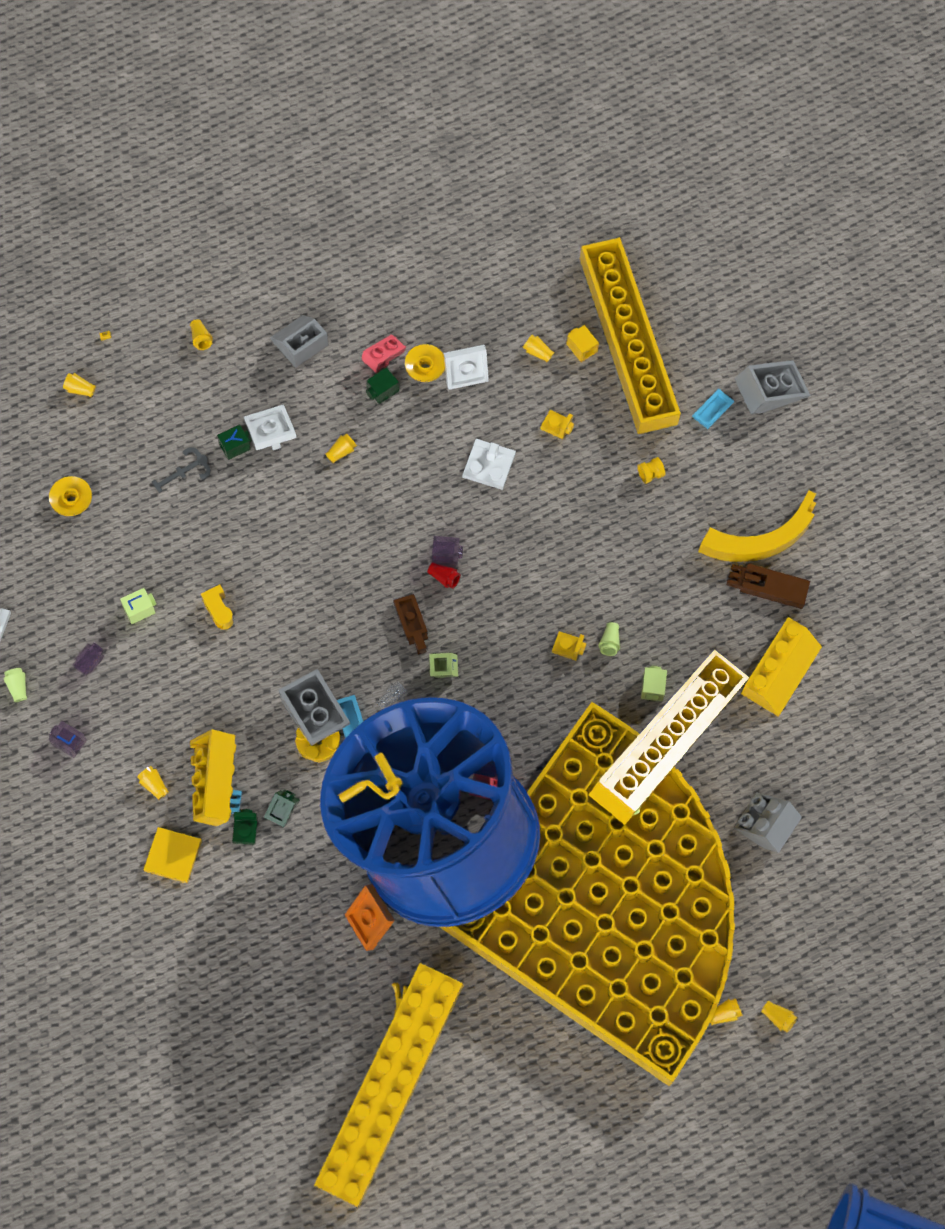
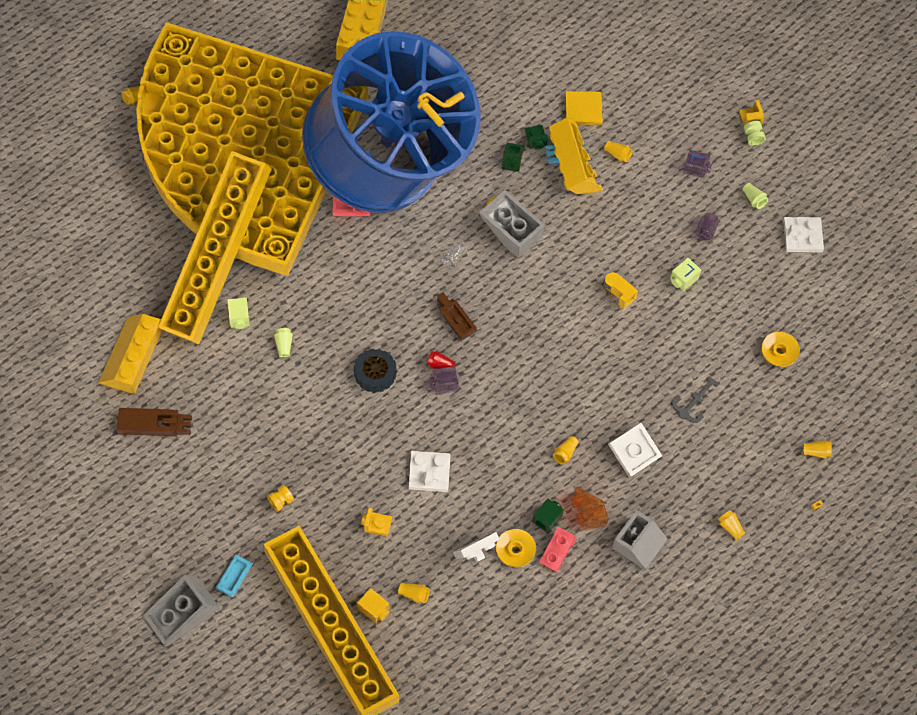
camera: 165 degrees right, 5 degrees down
(234, 441) = (662, 429): dark green brick -> none
(336, 381) = (590, 509): none -> clear orange slope
(351, 709) = (482, 233): medium azure tile -> none
(443, 665) = (418, 282): yellowish green brick -> none
(518, 582) = (375, 370): none -> black wheel
(569, 646) = (317, 330): yellow bracket -> none
(754, 548) = (172, 448): yellow arch -> none
(768, 821) = (123, 229): light grey slope -> none
(779, 1016) = (91, 99): yellow cone -> none

